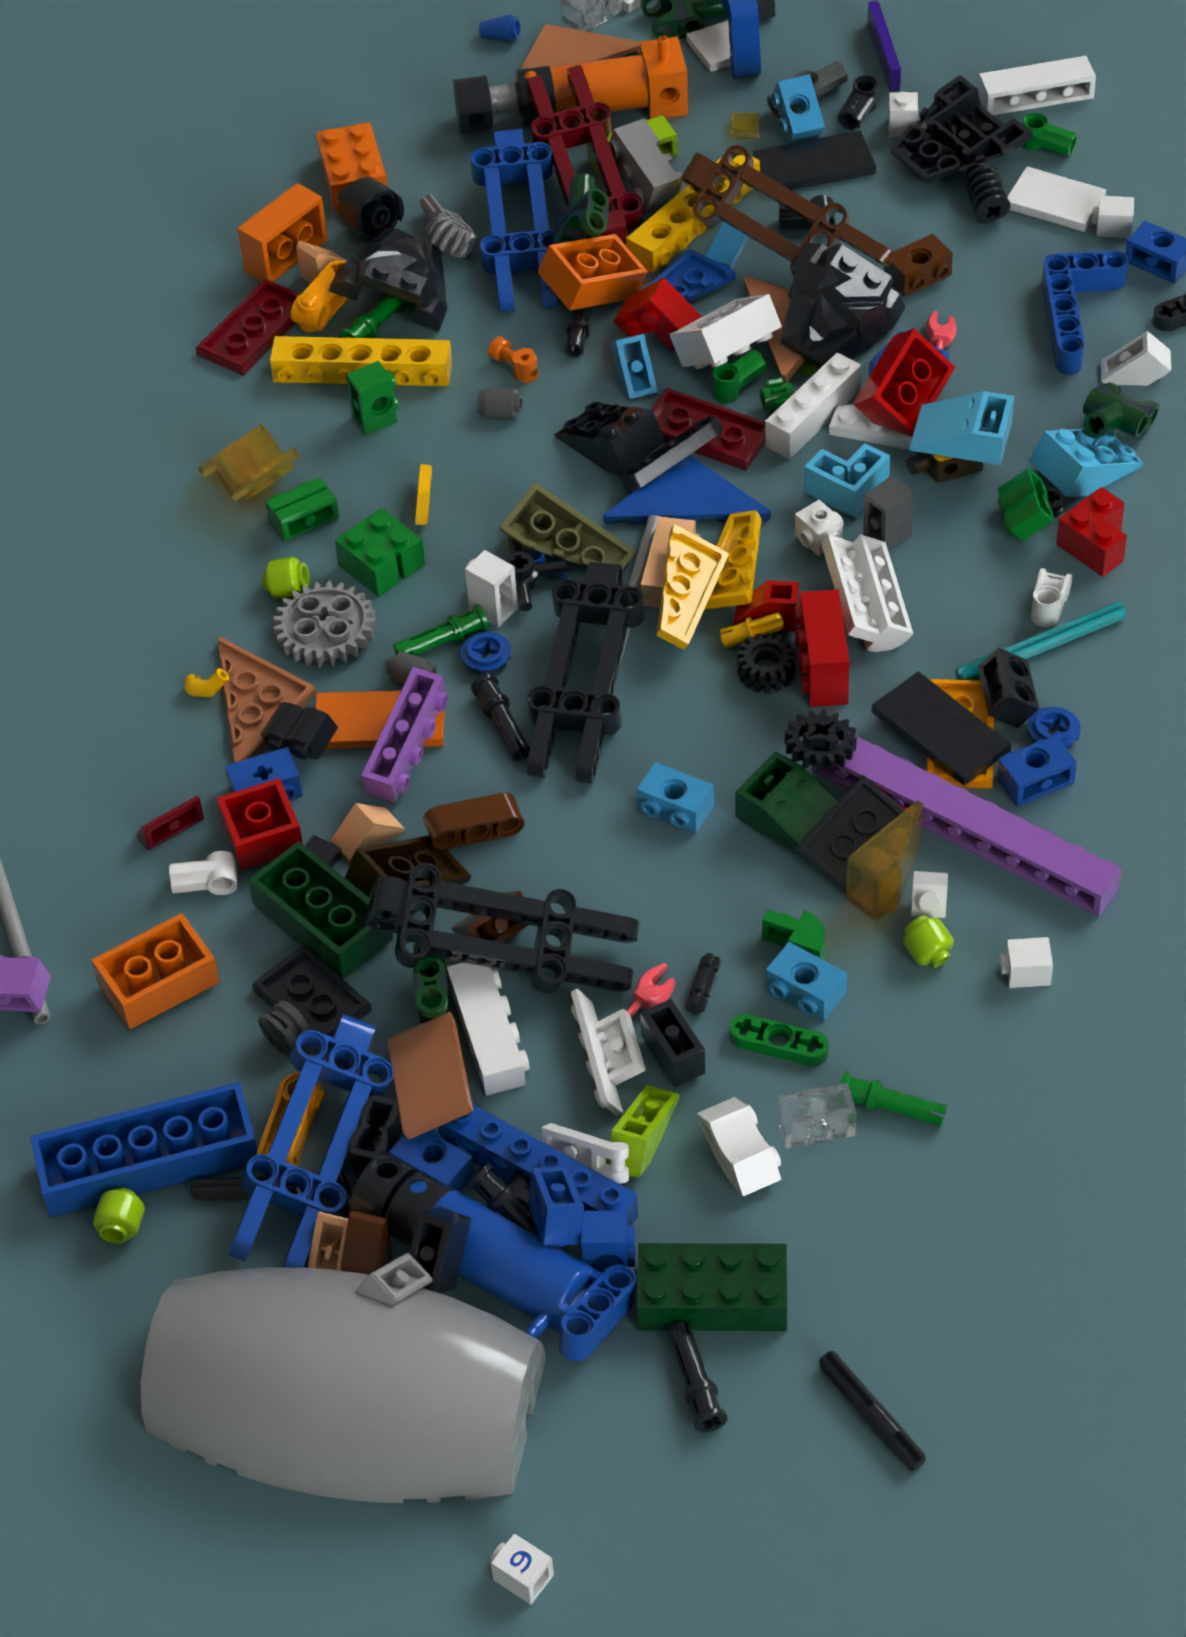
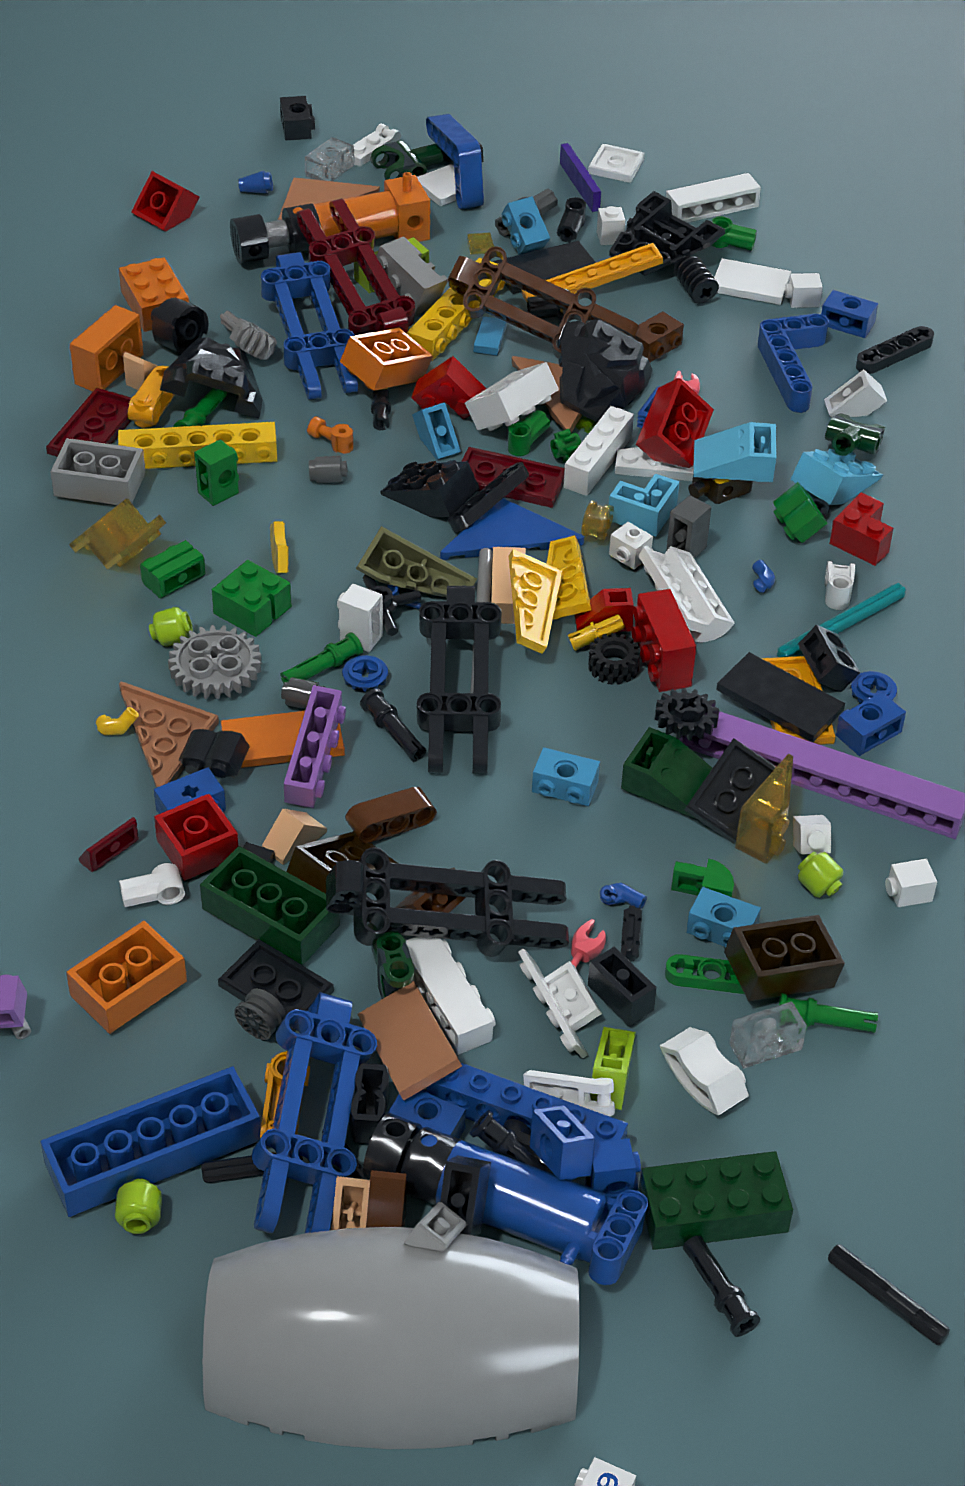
camera: 15 degrees left, 5 degrees down
(243, 385) = (97, 472): none -> light grey brick
(389, 47) = (164, 202): none -> red slope
(586, 211) = (374, 309): dark green connector -> none
(696, 275) = (474, 356): blue wing -> none
(702, 938) = (621, 893): none -> blue arm
(787, 493) = (597, 521): none -> clear yellow wheel
(856, 1032) = (783, 957): none -> dark brown brick
(876, 175) = (607, 270): none -> light orange tile
(934, 28) = (616, 163): none -> white tile
(967, 581) = (766, 576): none -> blue arm

